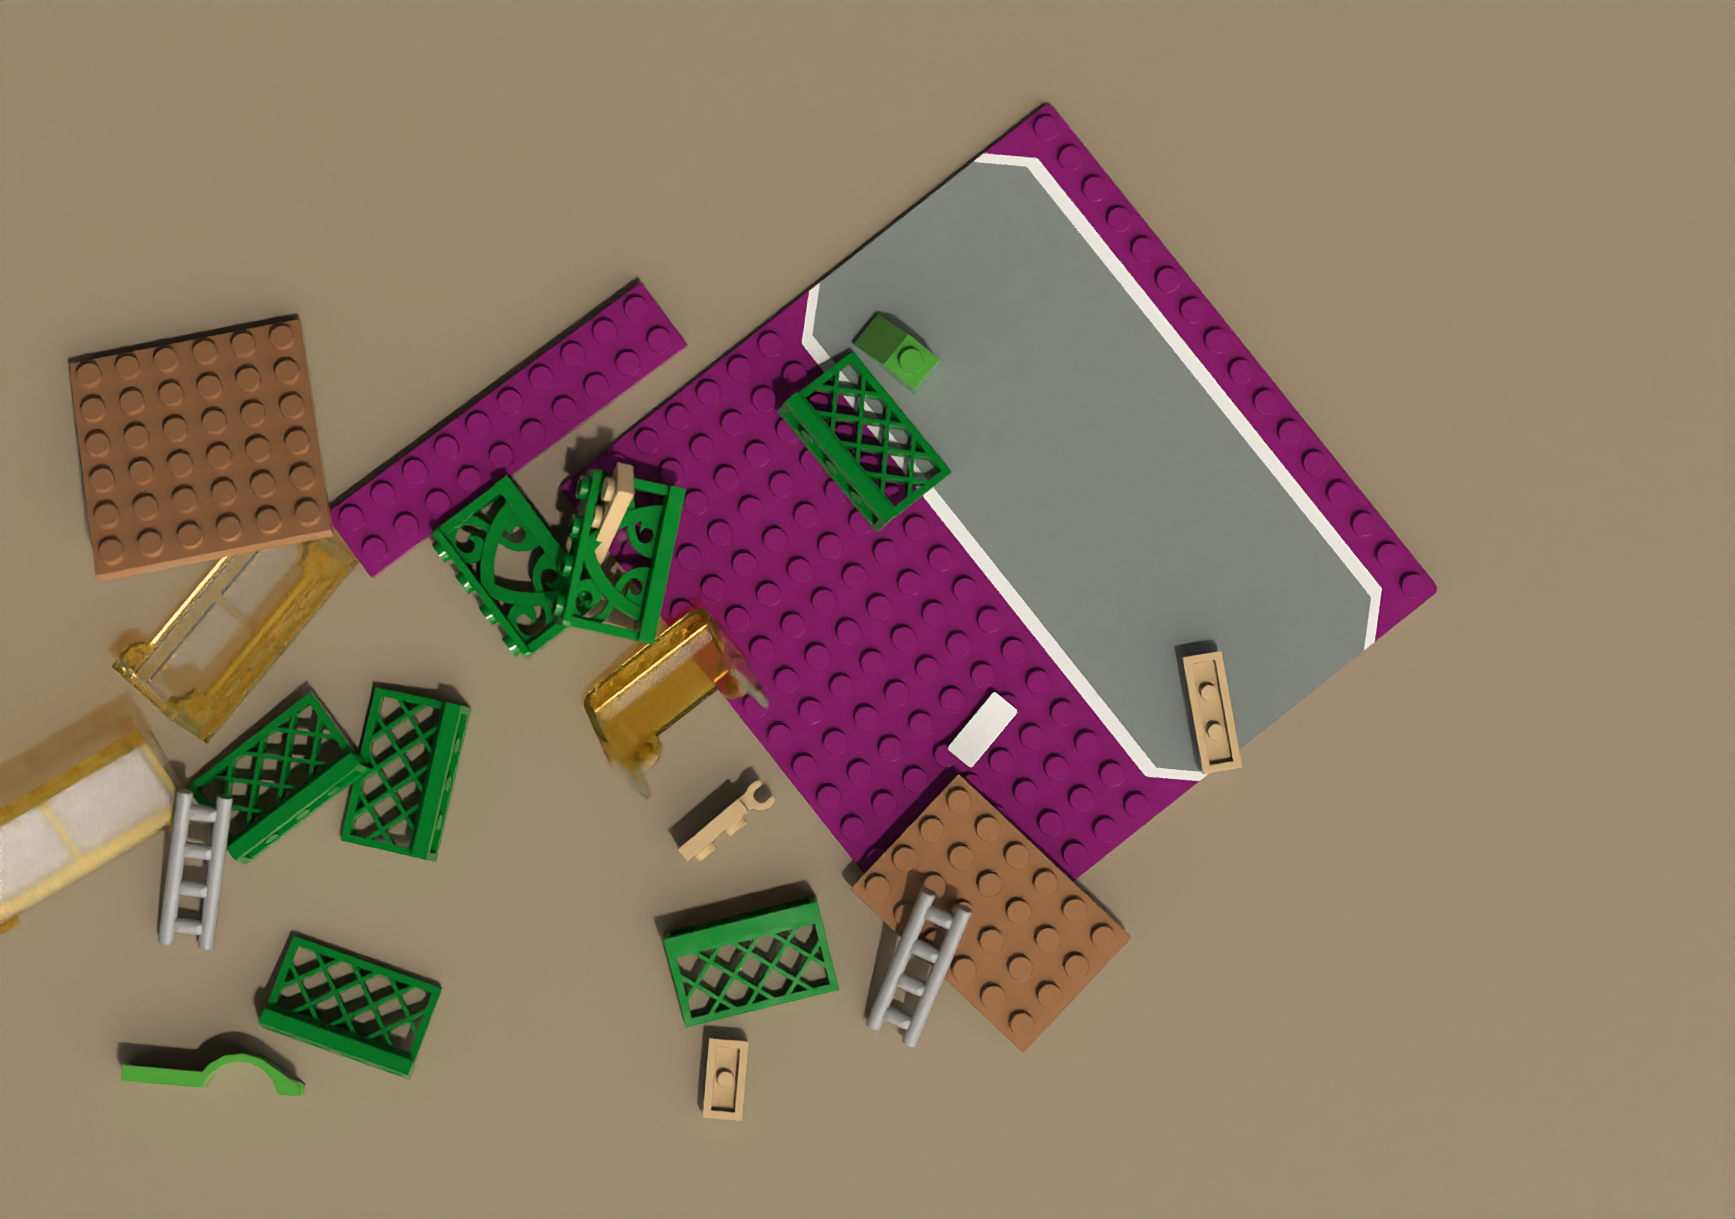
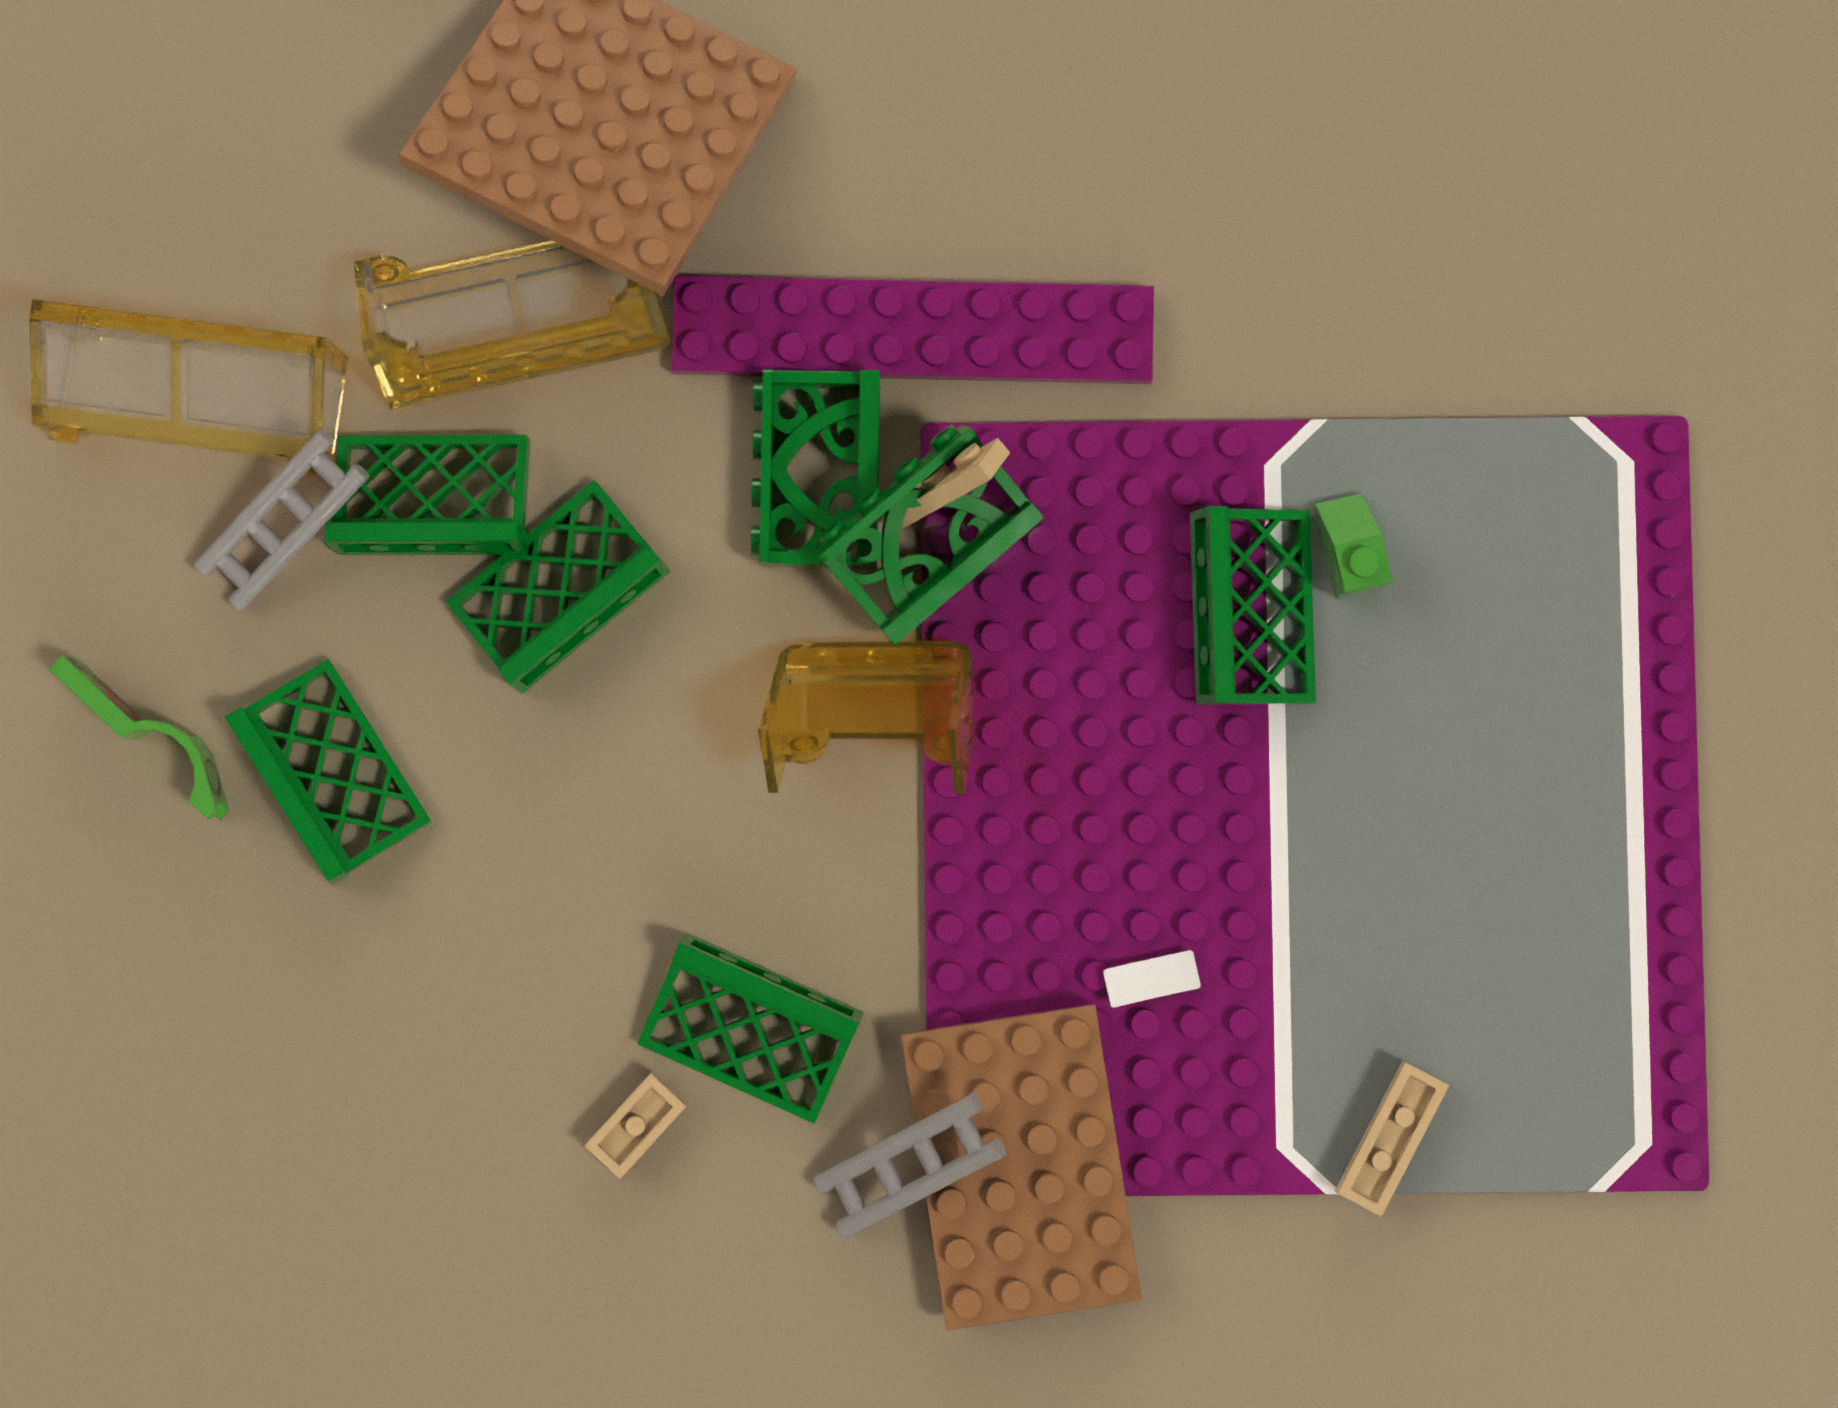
camera: 40 degrees right, 0 degrees up
(728, 821) = (834, 875): tan plate -> none

